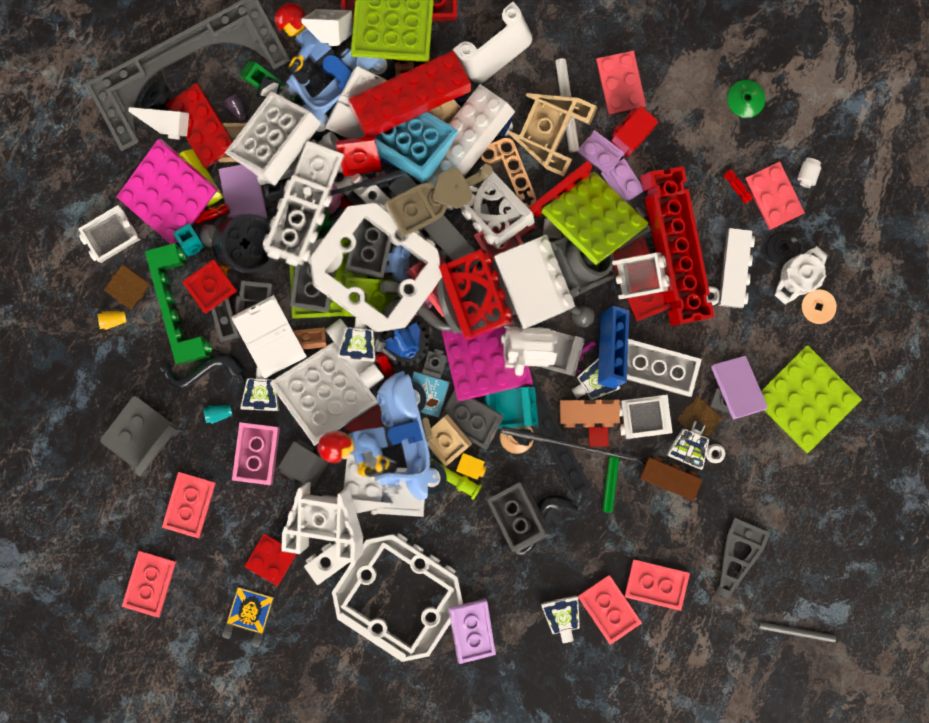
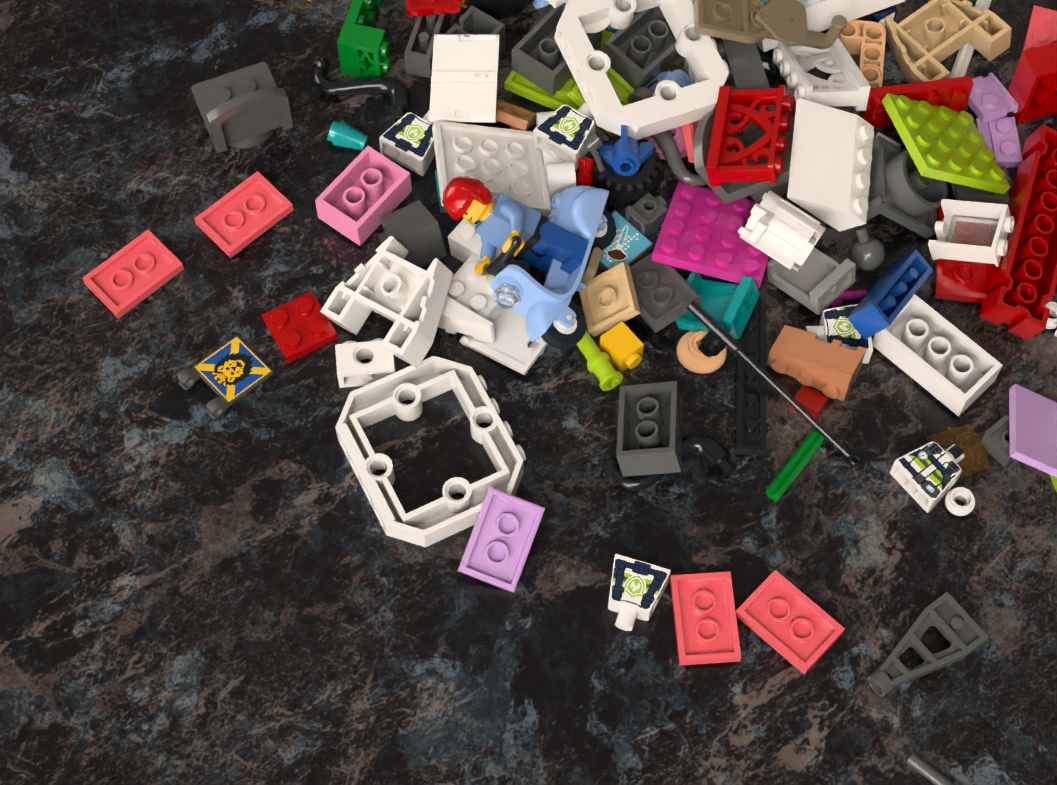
camera: 30 degrees right, 25 degrees down
(645, 417) = (886, 407): window -> none
(671, 478) = (882, 497): reddish brown brick -> none

